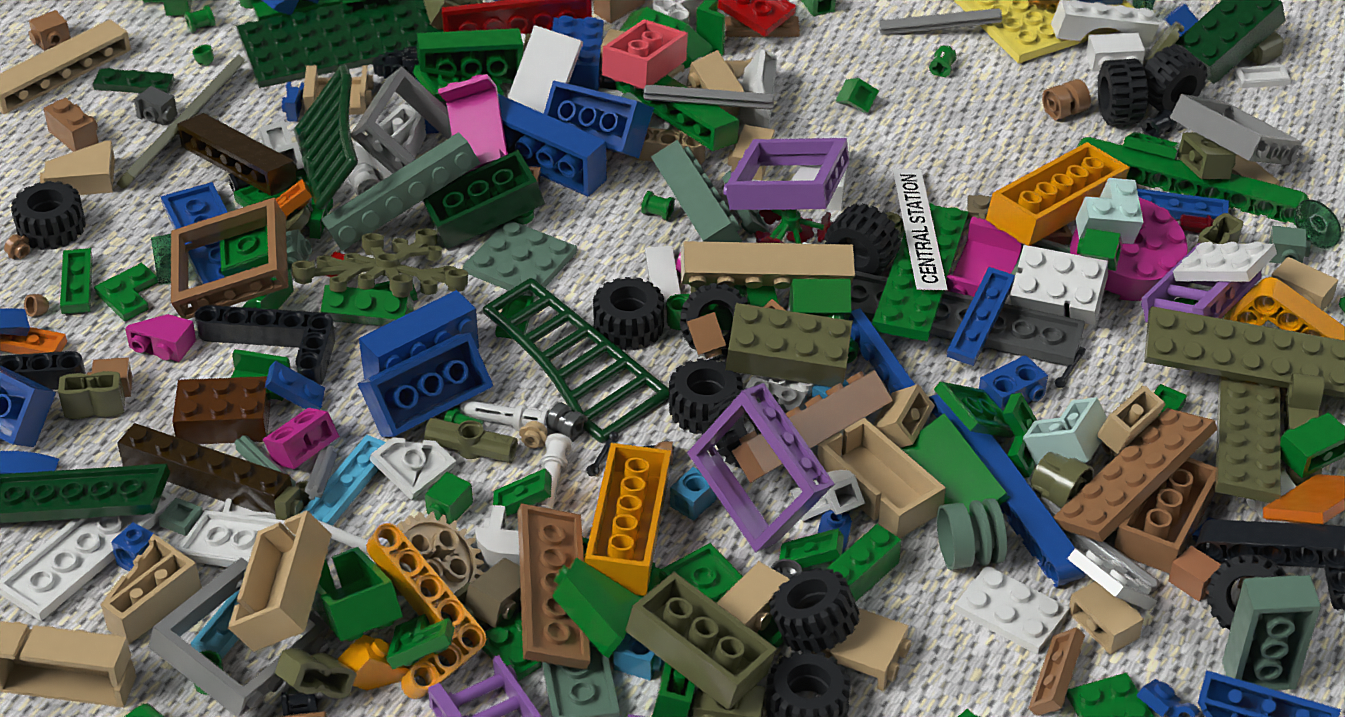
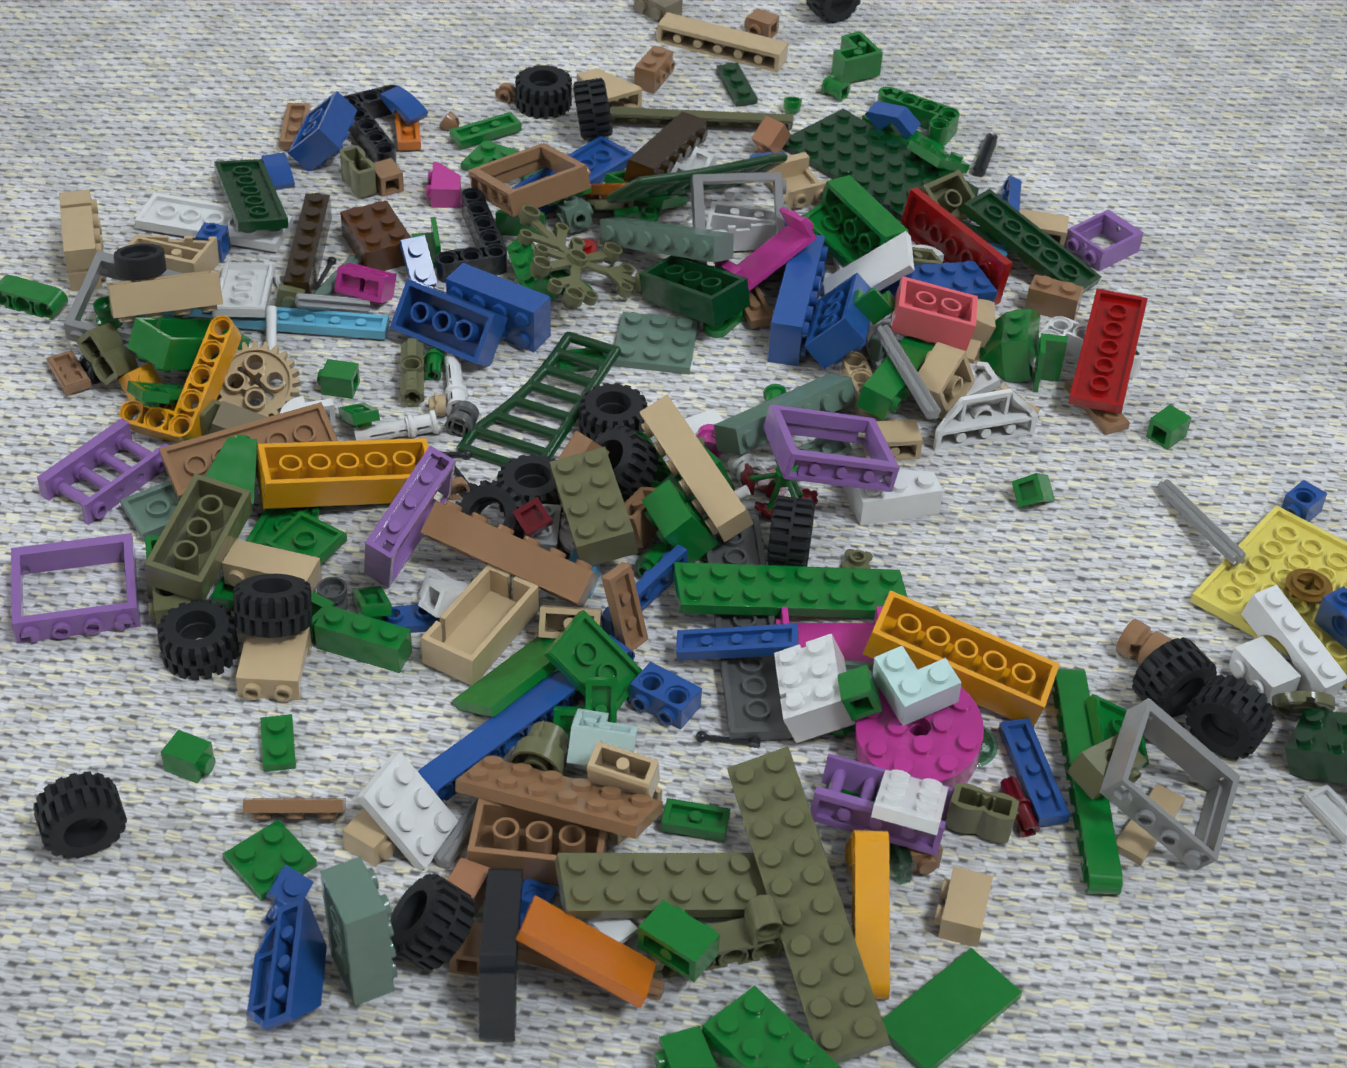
camera: 65 degrees right, 0 degrees up
(129, 181) = (592, 108): none -> black tyre
(156, 106) = (708, 97): dark grey brick -> none
(180, 516) = (261, 253): sand green plate -> none
(224, 598) = (139, 261): none -> black tyre
(257, 82) = (770, 136): none -> nougat brick
(412, 464) = (368, 347): white plate -> none
(610, 82) = (874, 304): none -> green panel
(788, 387) = (533, 517): none -> dark red tile
(918, 366) = (625, 606): none -> medium nougat plate
(919, 230) = (844, 573): white sticker -> none
(946, 61) = (1139, 540): green bush -> none
(962, 670) = (278, 743): none -> green plate
(971, 533) = (431, 699): sand green wheel -> none
(1011, 609) = (363, 754): white plate -> none
(1289, 243) = (1027, 882): sand green brick -> none
(1320, 223) = (1091, 887): clear green dish -> none

